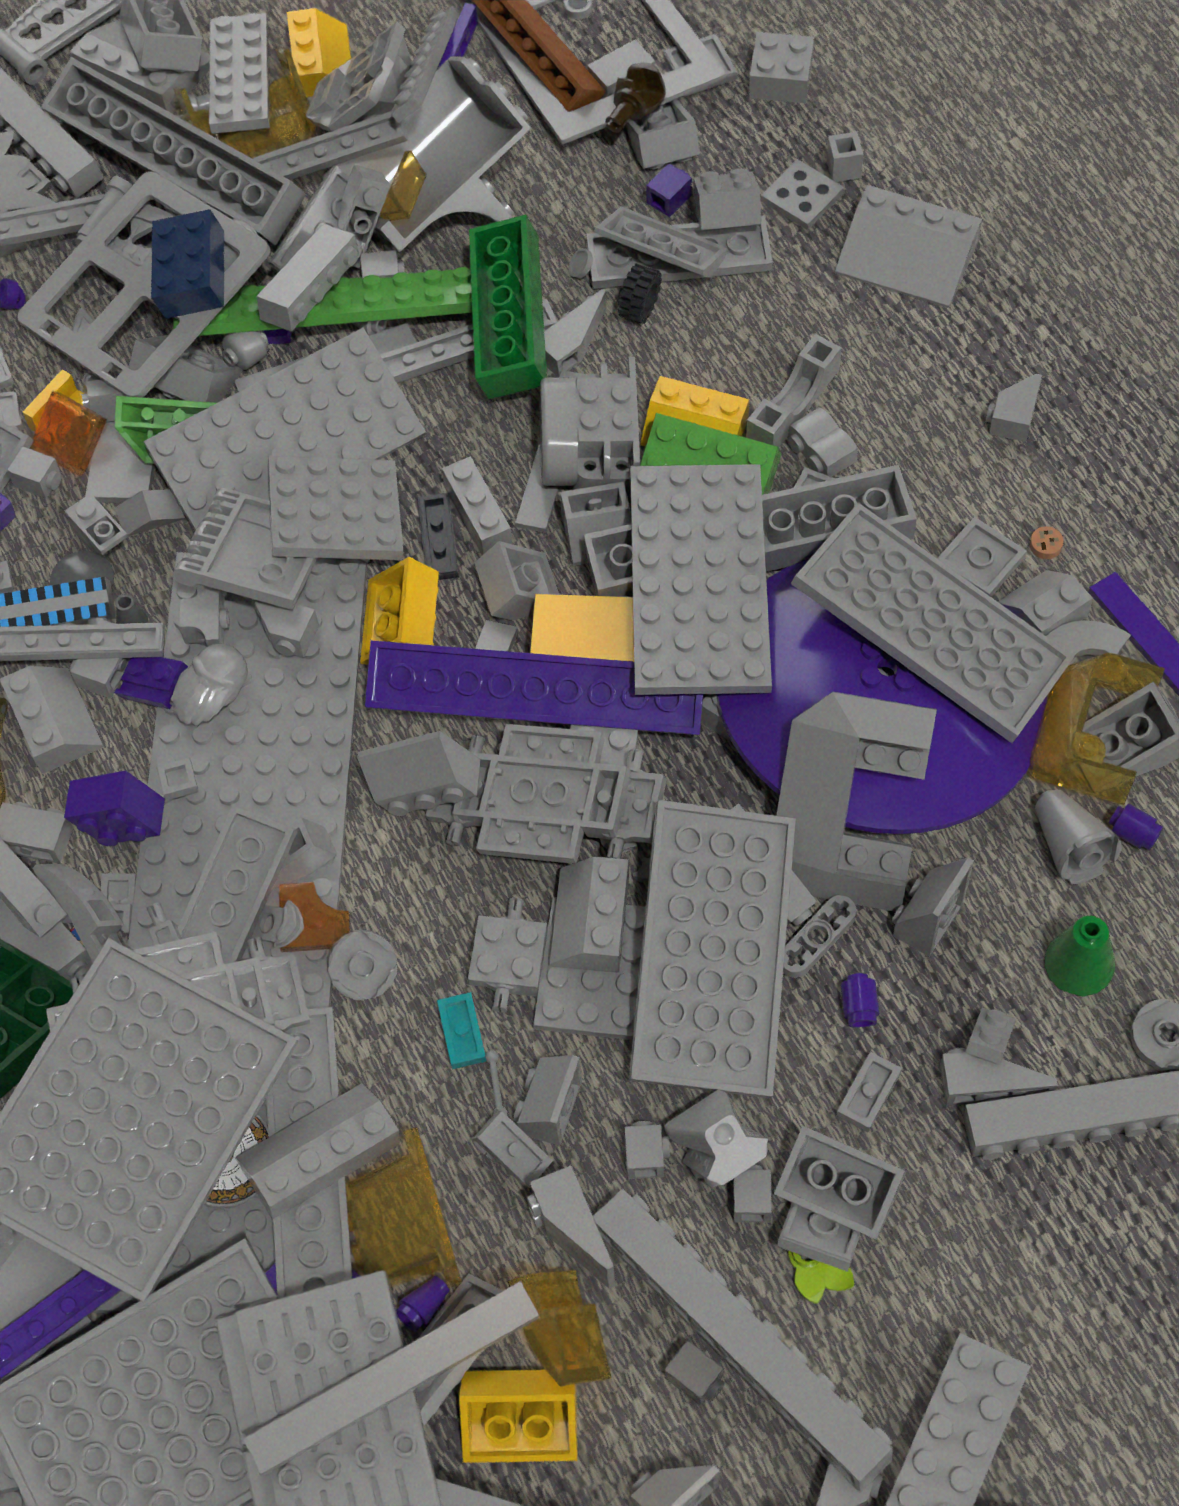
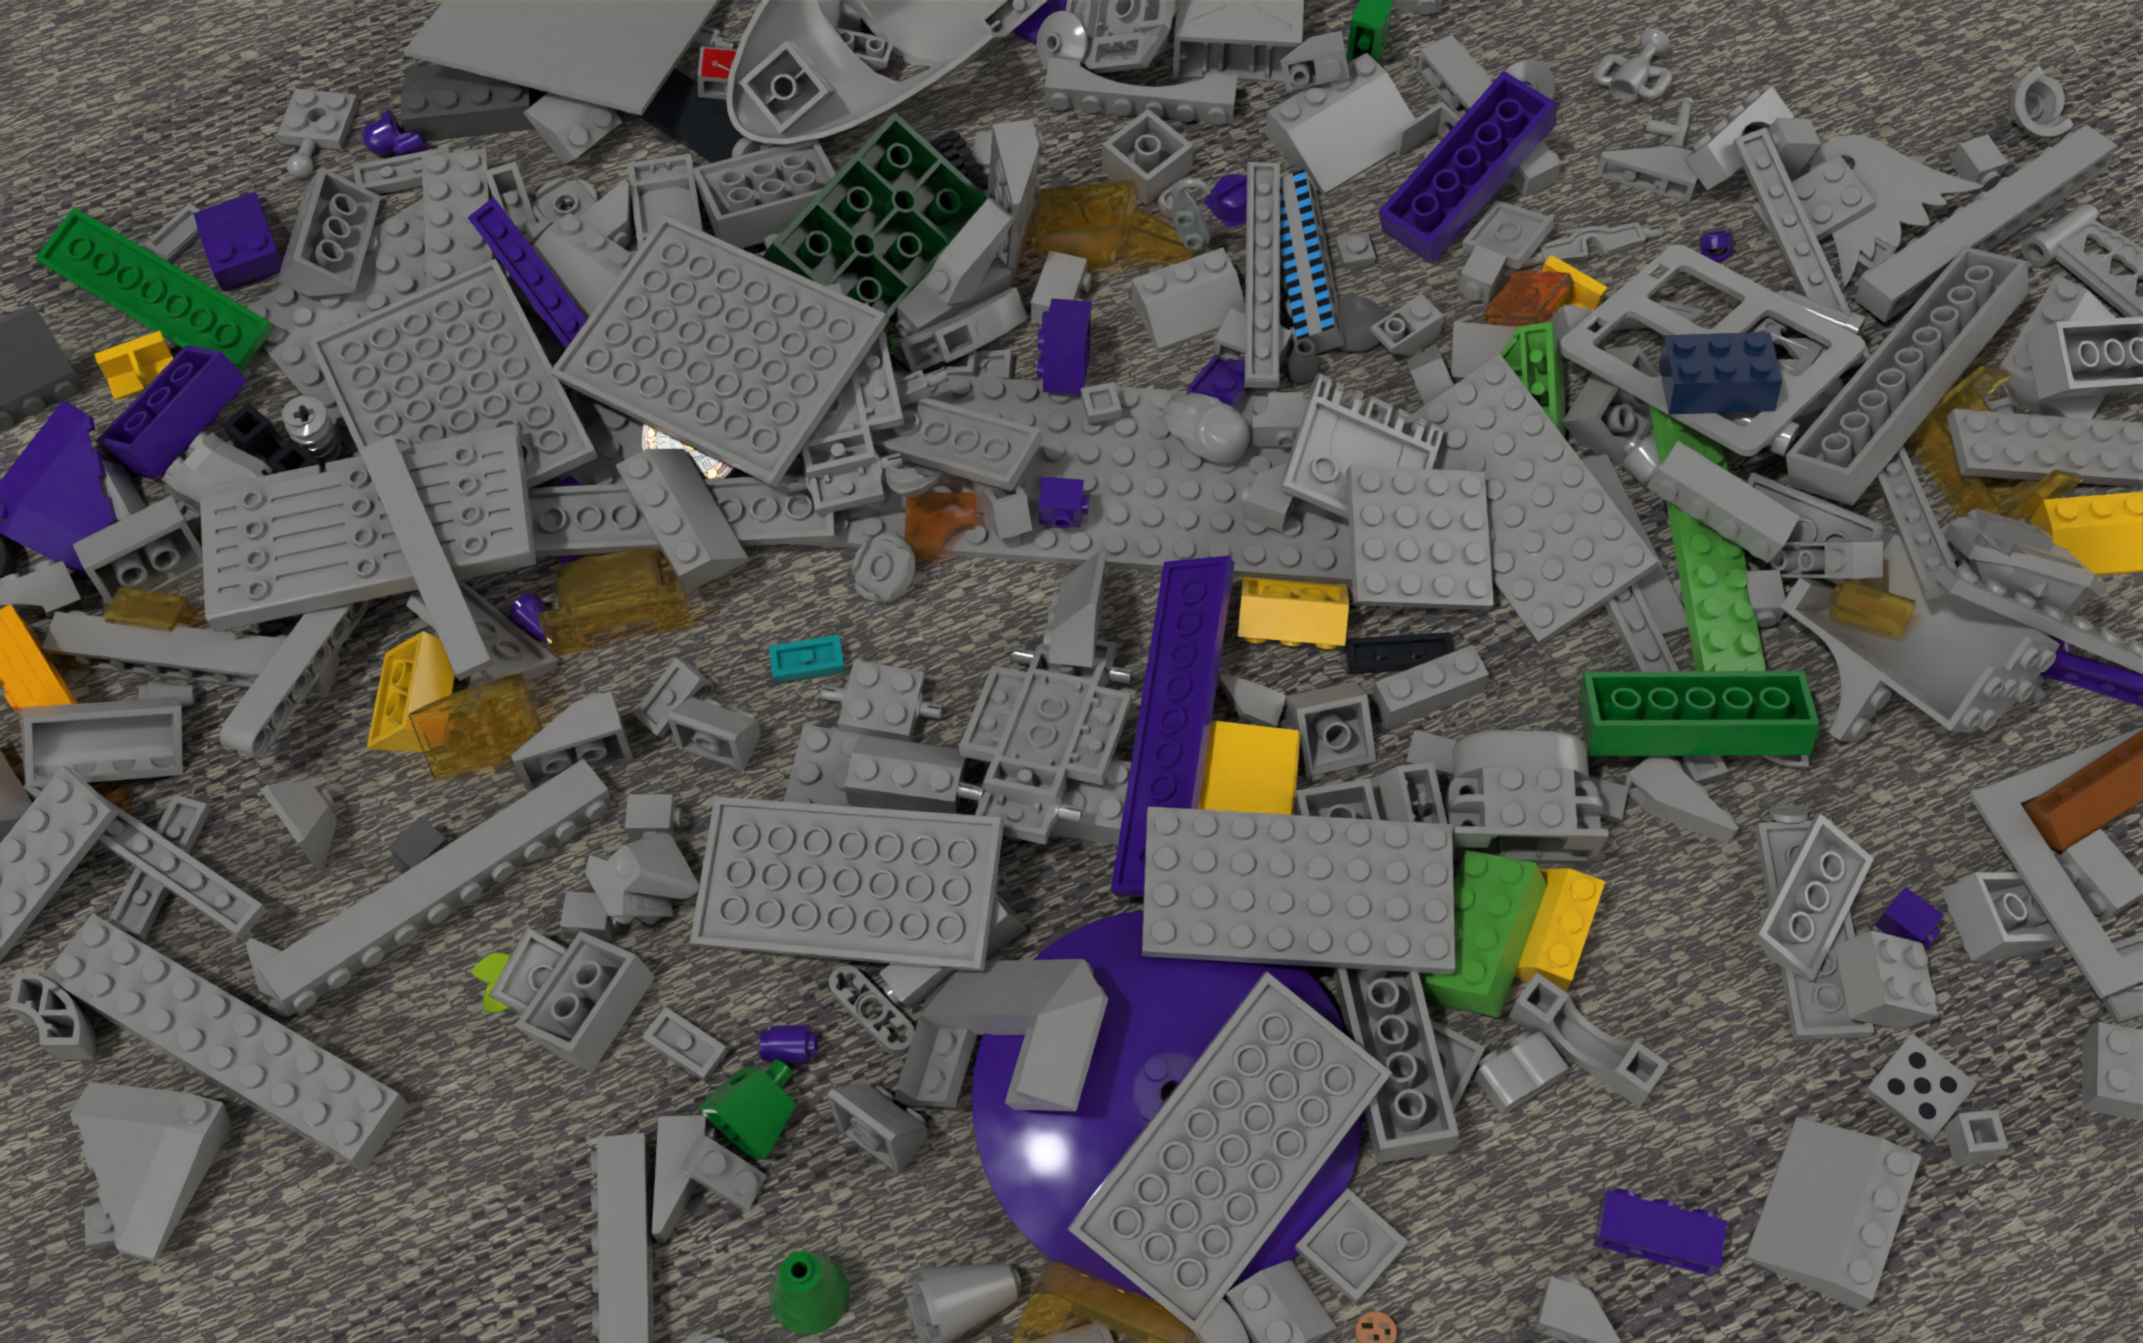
camera: 90 degrees right, 0 degrees up
(294, 800) = (1062, 502): none -> dark purple brick
(492, 1057) = (718, 694): light grey hinge -> none
(636, 95) = (2037, 874): dark brown piece -> none
(639, 293) = (1735, 870): black tyre -> none
(928, 1016) = (751, 1108): none -> green torso
(940, 354) = (1660, 1232): none -> dark purple brick

